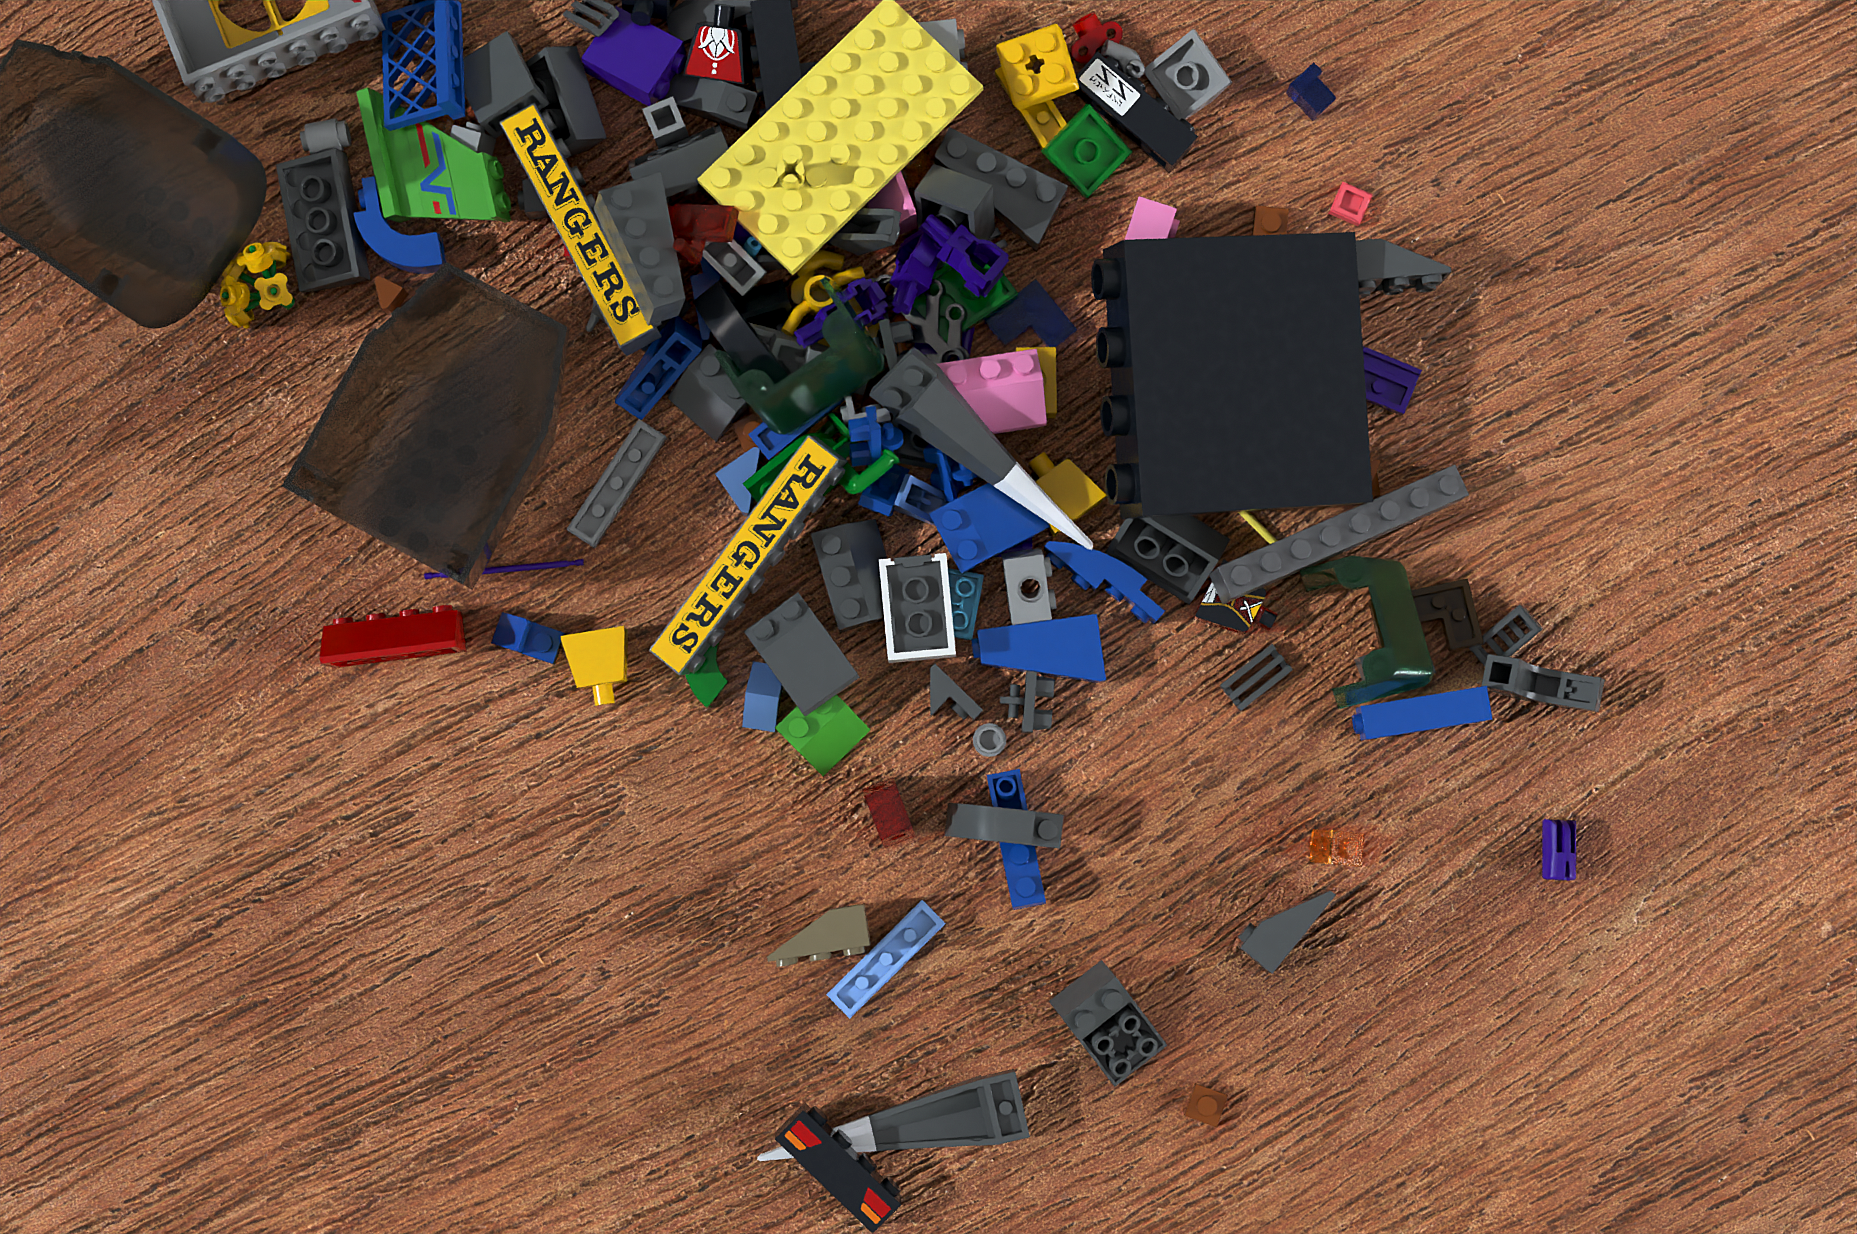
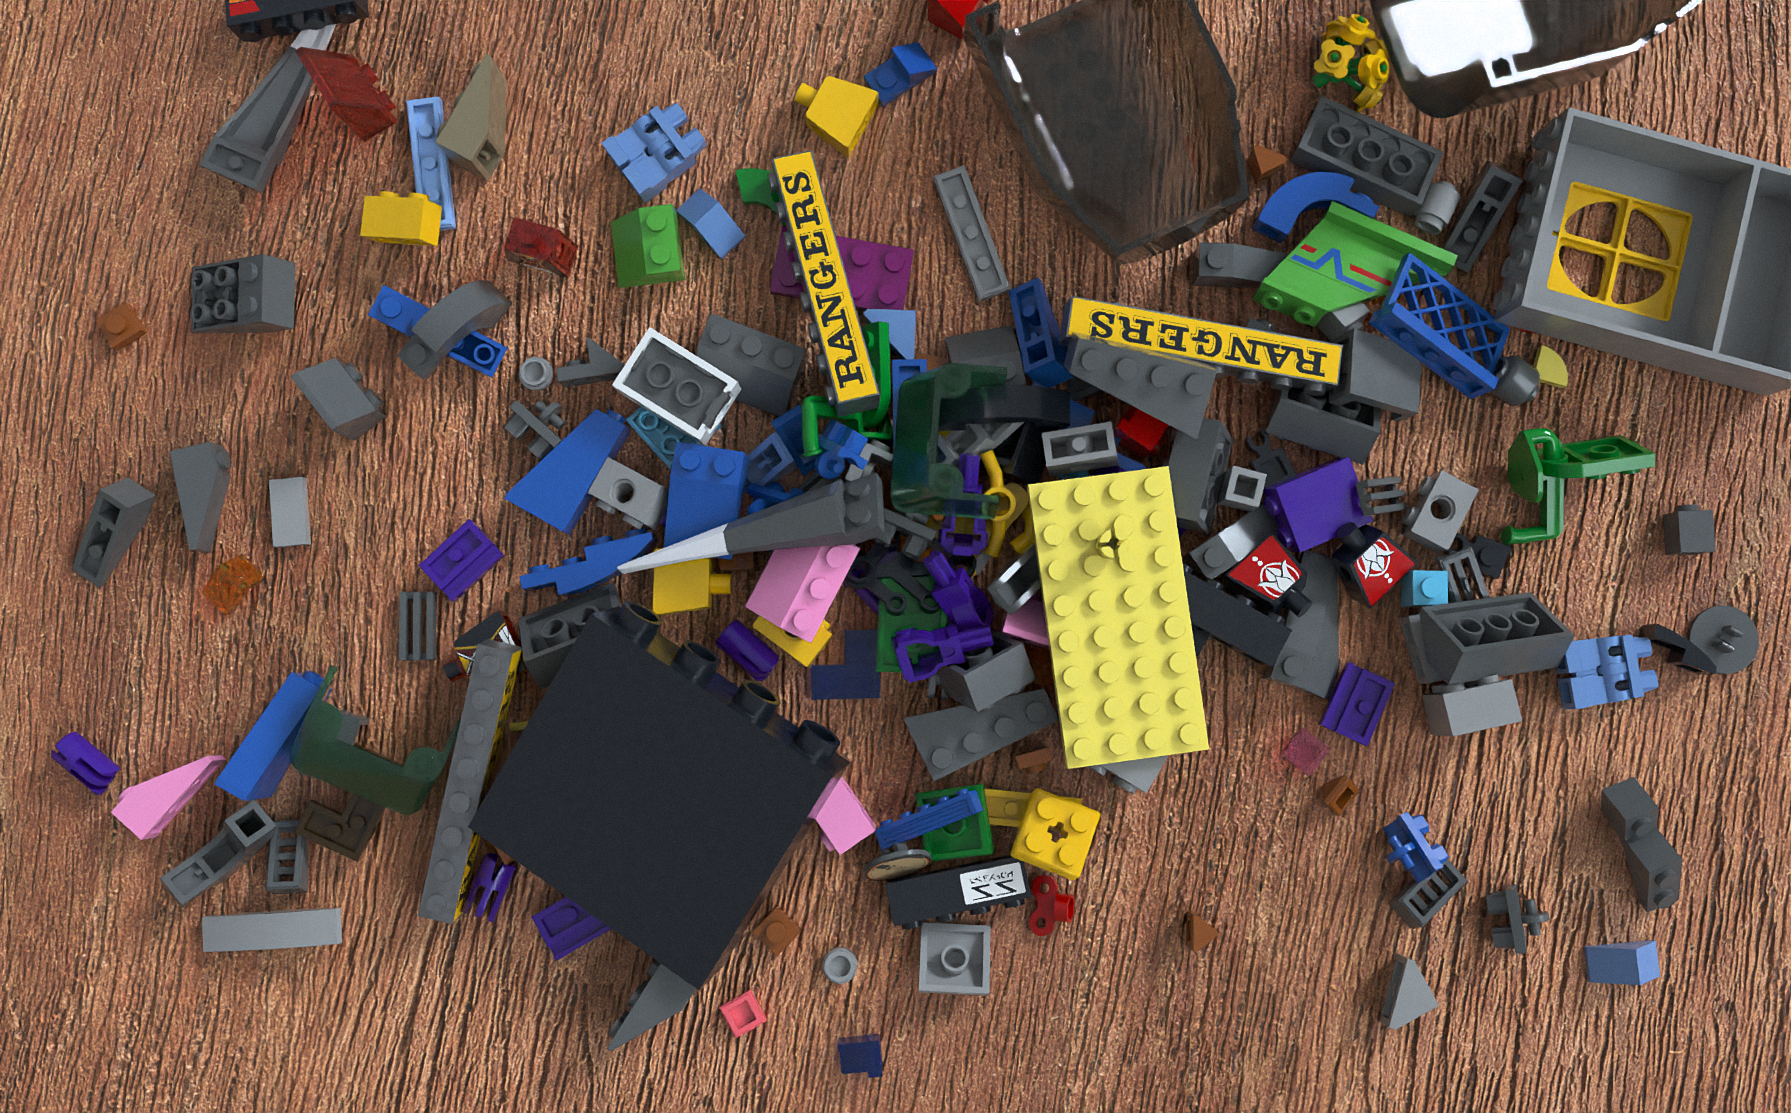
camera: 135 degrees right, 0 degrees up
(305, 100) = (1481, 213): none -> dark grey slope
(488, 254) = (1233, 265): none -> dark grey slope
(522, 567) = (955, 120): dark purple piece -> none
(628, 118) = (1269, 462): none -> black plate
(700, 226) = (1125, 440): clear red plate -> none
(702, 535) = (874, 271): none -> magenta plate
(761, 772) = (668, 152): none -> medium blue hips
(801, 654) = (713, 269): dark grey slope -> none
(876, 1058) = (350, 90): none -> clear red slope
(950, 939) = (401, 219): none -> yellow brick
(993, 128) = (1033, 760): none -> dark orange plate
(1077, 406) = (747, 650): none -> dark purple arm
(1098, 170) = (928, 818): none -> blue piece
(1125, 872) = (340, 397): none -> dark grey slope
(1126, 57) = (1009, 919): light grey arm -> none
(1153, 169) = (897, 864): none -> piece
(1179, 681) = (461, 560): none -> dark purple plate
(1246, 848) = (289, 512): none -> light grey tile
(1258, 159) = (840, 965): none -> light grey tile
(1369, 975) = (112, 527): none -> dark grey slope
(1407, 464) = (491, 881): none -> dark purple arm
(1539, 770) = (154, 803): none -> bright pink slope
(1568, 603) = (272, 929): none -> light grey slope

